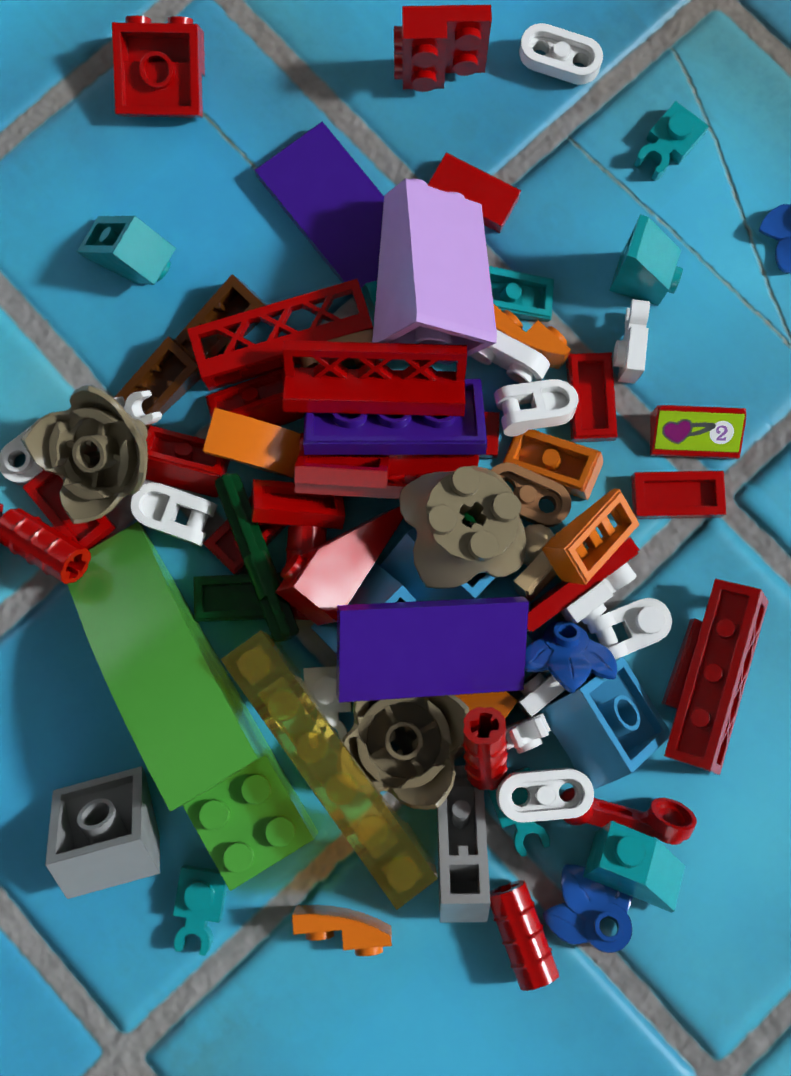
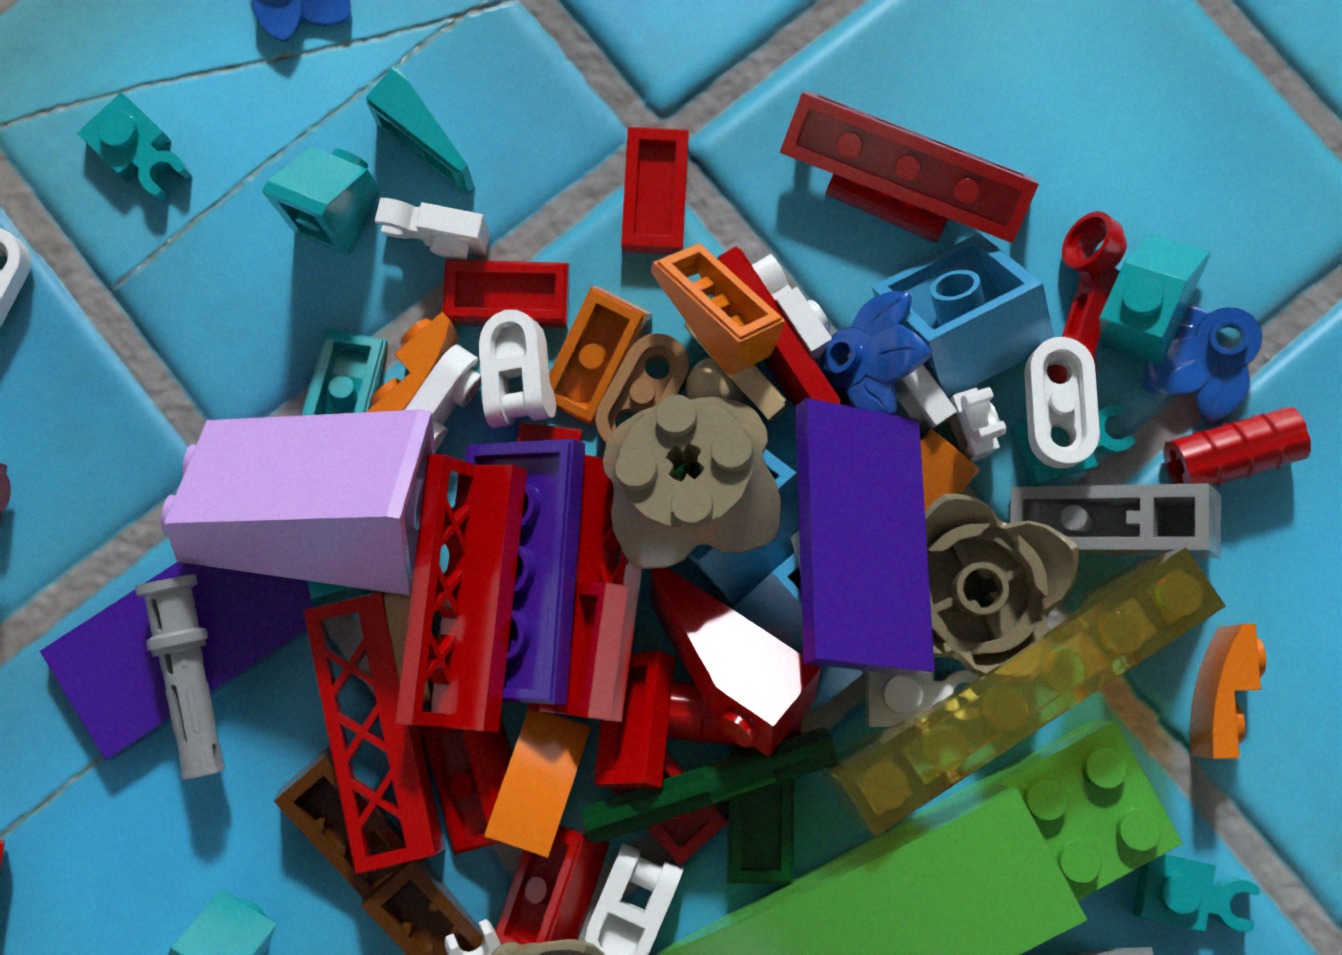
camera: 90 degrees left, 0 degrees up
(330, 203) = (178, 644): none -> light grey pin
(478, 186) = (176, 423): red tile -> none
(485, 747) = (998, 475): red axle -> none
(643, 620) = (828, 252): white plate -> none
(697, 431) = (570, 156): slope -> none
(714, 313) = (408, 120): none -> teal slope

